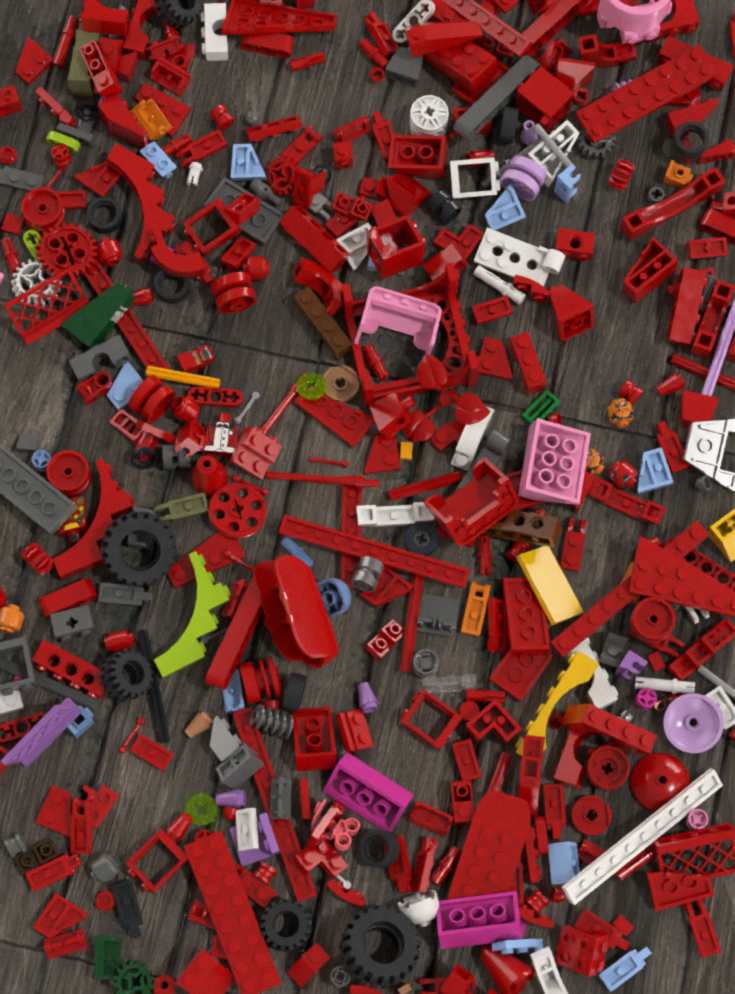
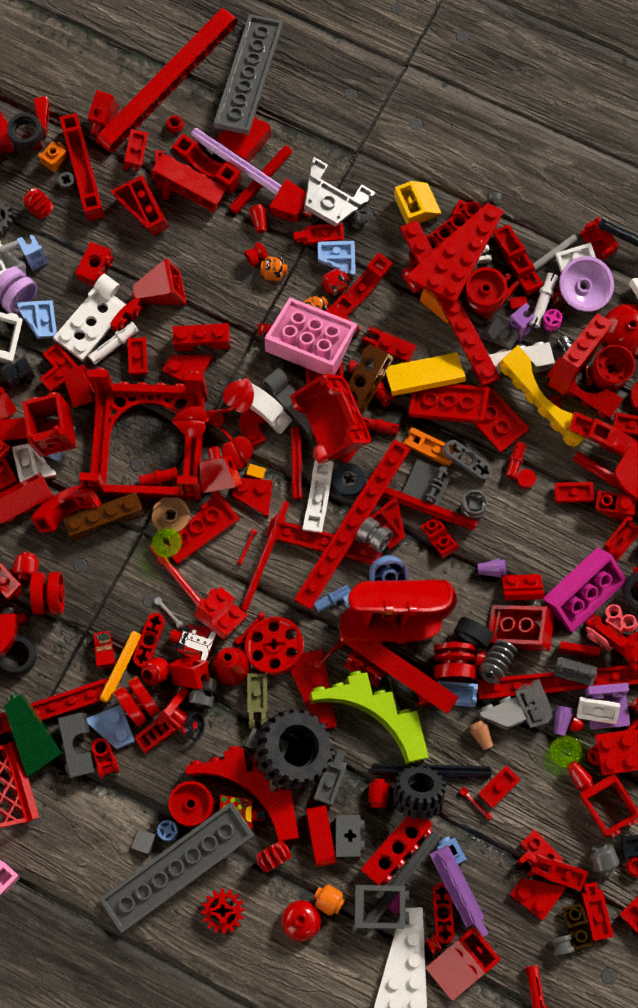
camera: 70 degrees left, 0 degrees up
(143, 296) = (21, 685): red cone -> none
(401, 314) = (121, 434): bright pink windscreen -> none
(447, 732) = (541, 500): red window -> none
(450, 683) = (496, 488): clear hinge -> none
(478, 643) = (458, 447): none -> dark grey beam
(493, 719) = (542, 458): red brick -> none
(497, 626) = (452, 431): red hinge -> none
(551, 398) = (255, 351): green tile -> none

